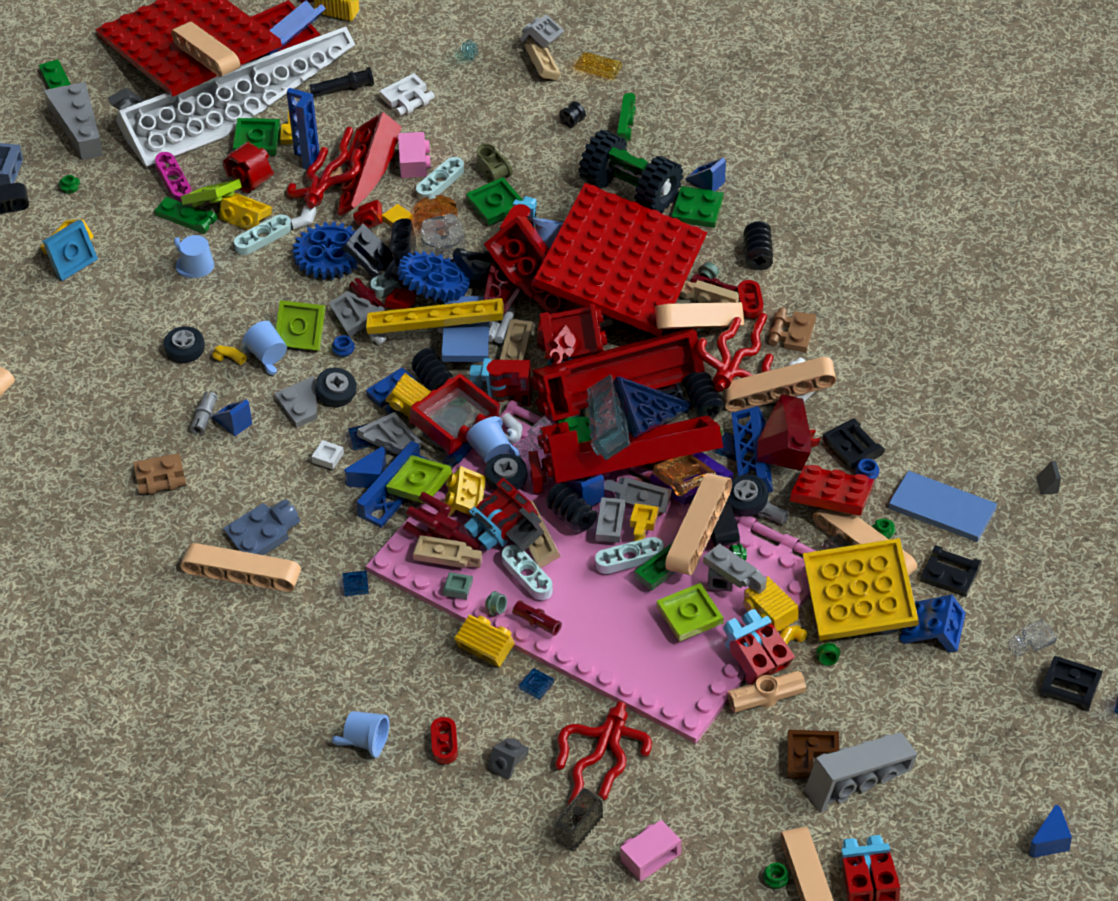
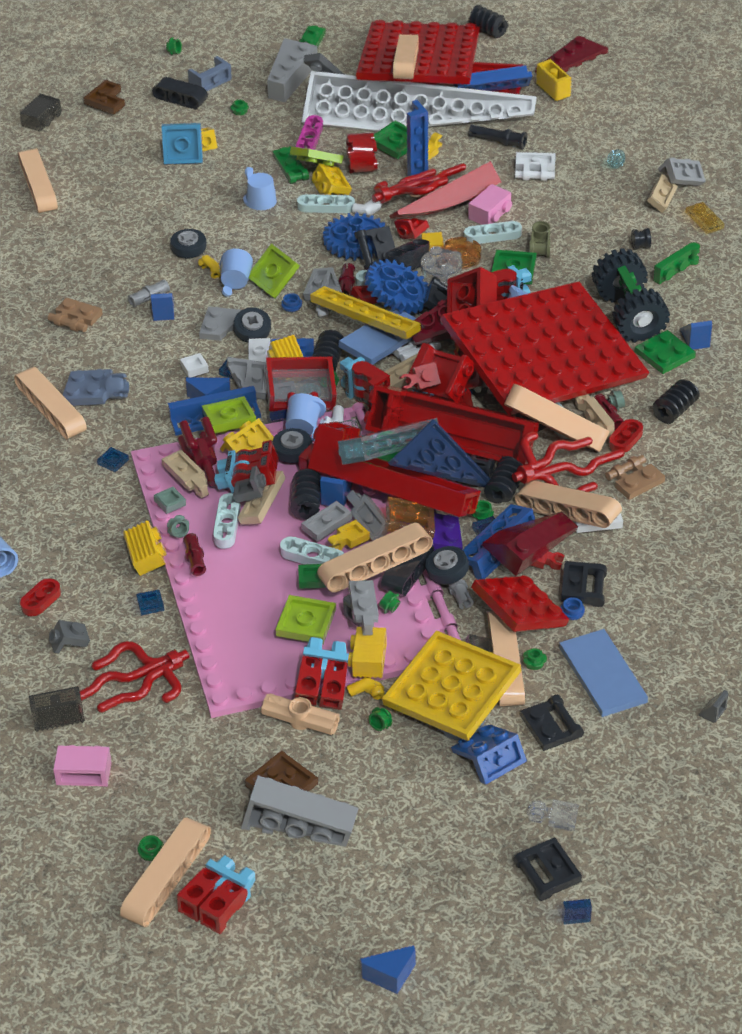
camera: 40 degrees right, 5 degrees down
(366, 407) = (258, 349): none -> white plate

